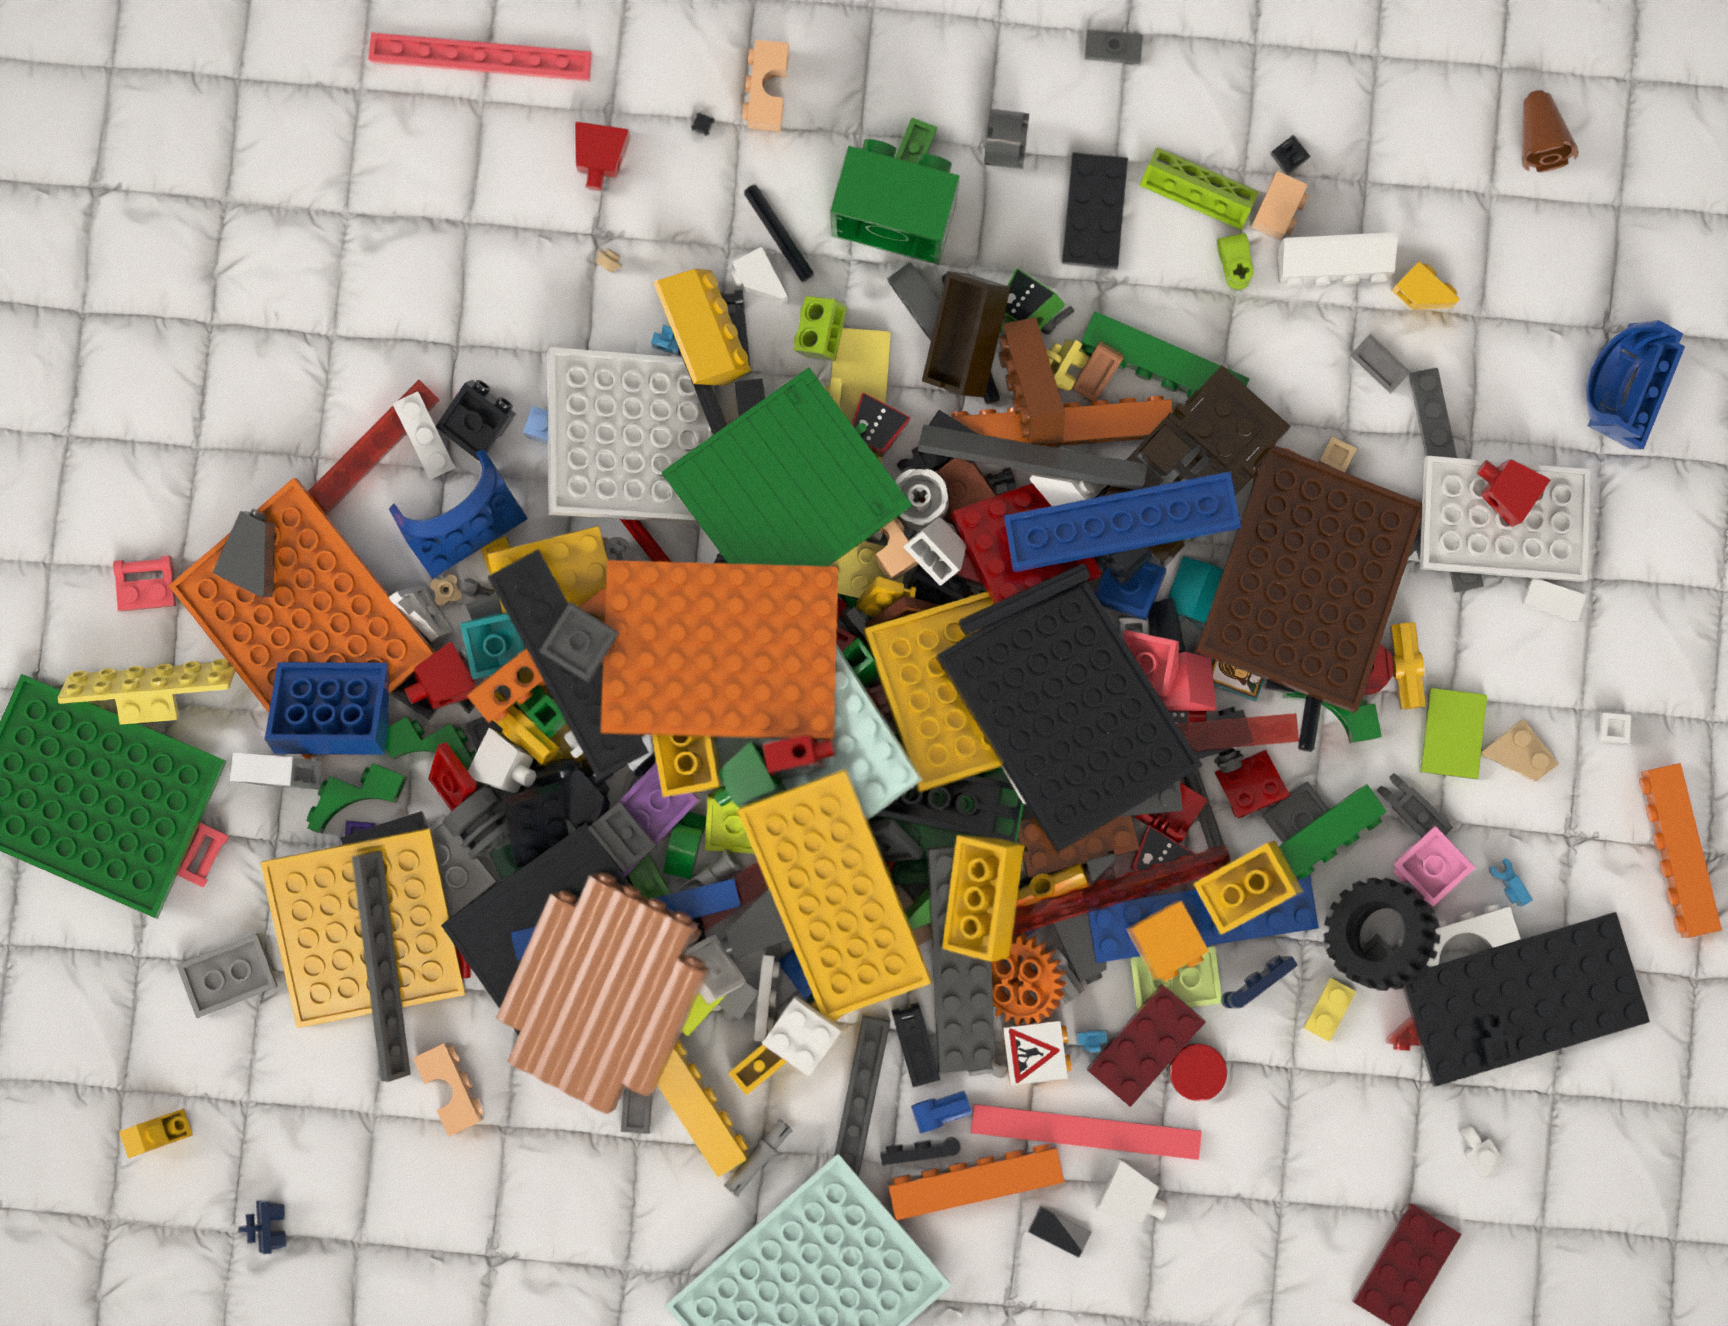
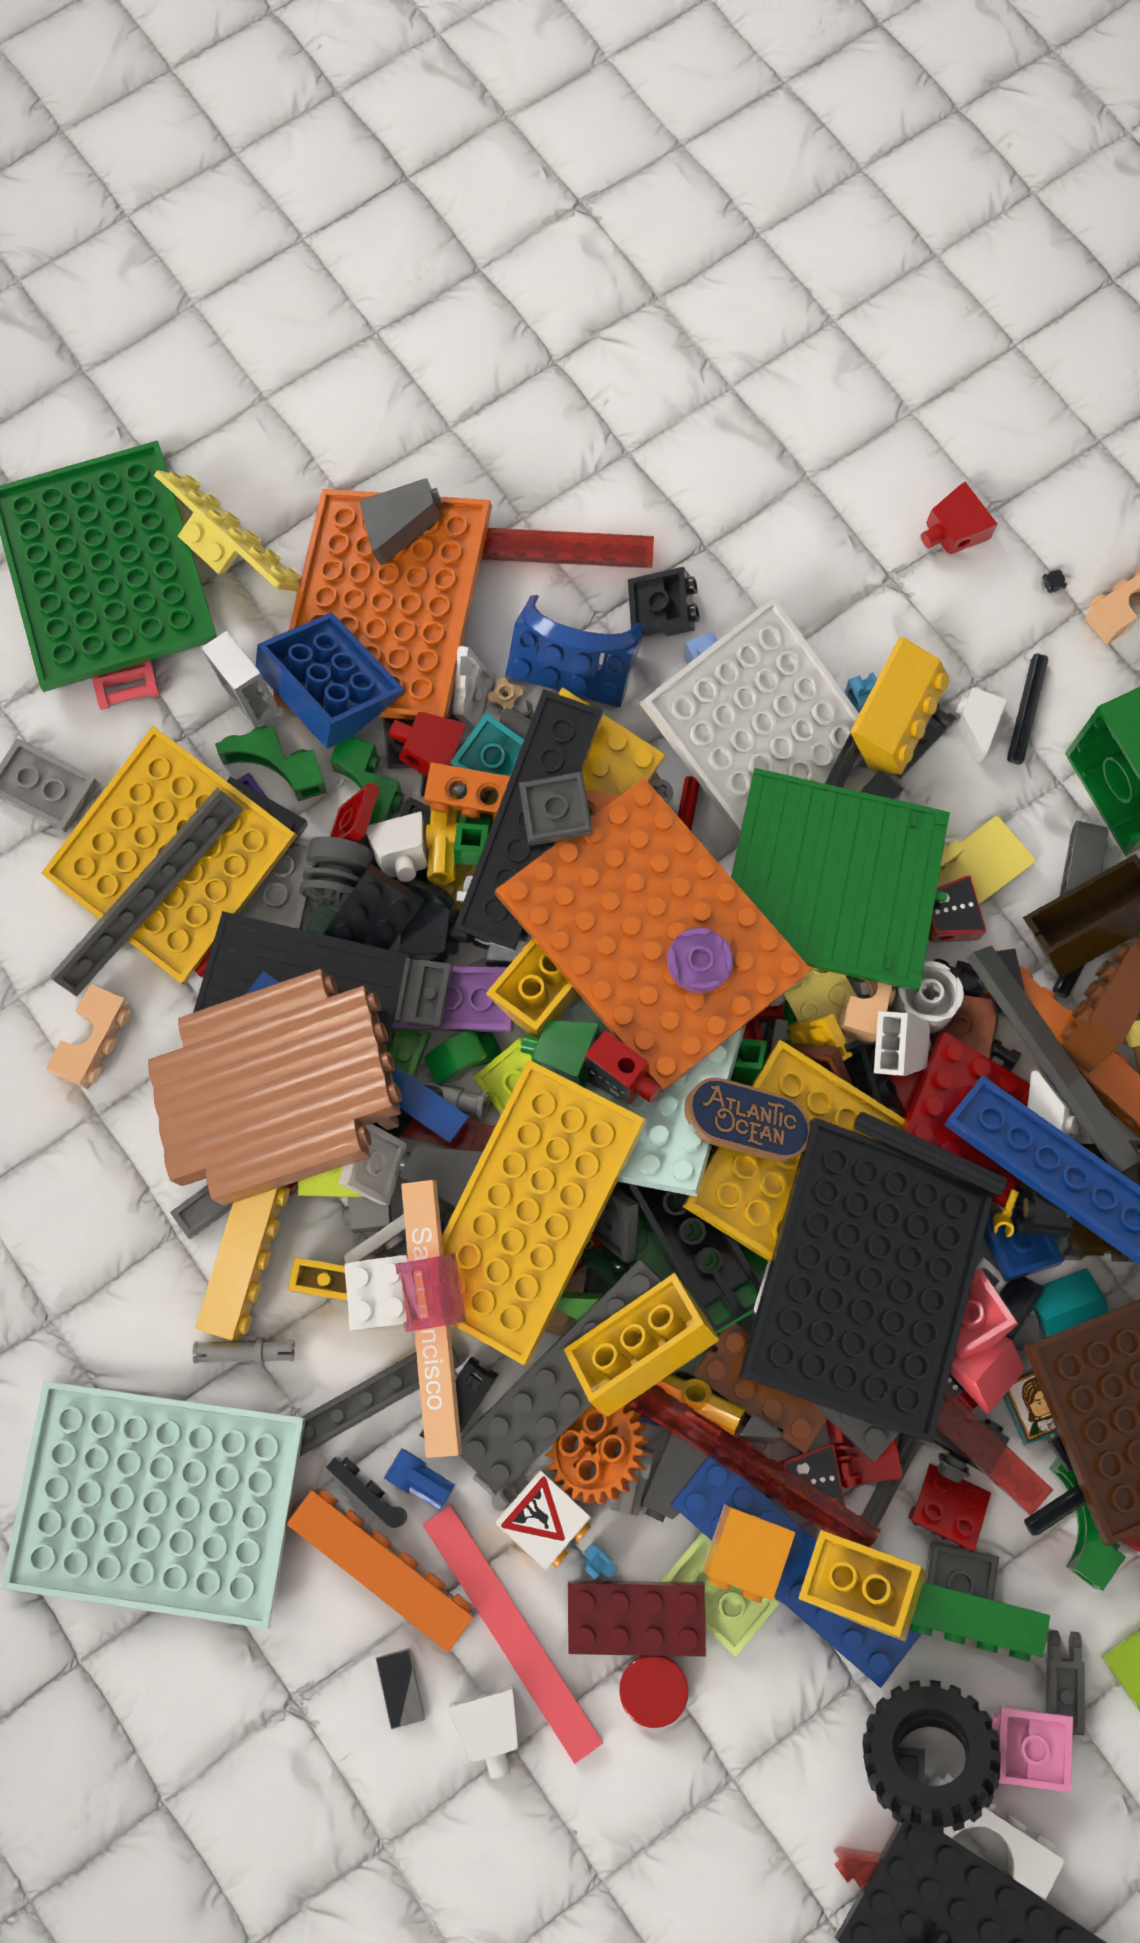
camera: 45 degrees right, 10 degrees down
(144, 593) = (301, 479): coral plate -> none
(423, 435) = (613, 575): white plate -> none
(480, 56) = (944, 382): coral tile -> none
(608, 260) = (881, 598): tan plate -> none
(768, 638) = (699, 960): none -> medium lavender tile
(826, 328) = (986, 801): lime brick -> none
(836, 995) = (441, 1291): none -> clear pink plate
(847, 1016) = (432, 1344): none -> light nougat tile
(900, 700) = (747, 1119): none -> tile
(1106, 583) = (1004, 1217): none -> yellow hand
(1259, 982) = (783, 1675): dark blue plate -> none
(1329, 1009) = (816, 1766): light yellow plate -> none
(1515, 889) = (1084, 1848): dark azure plate -> none

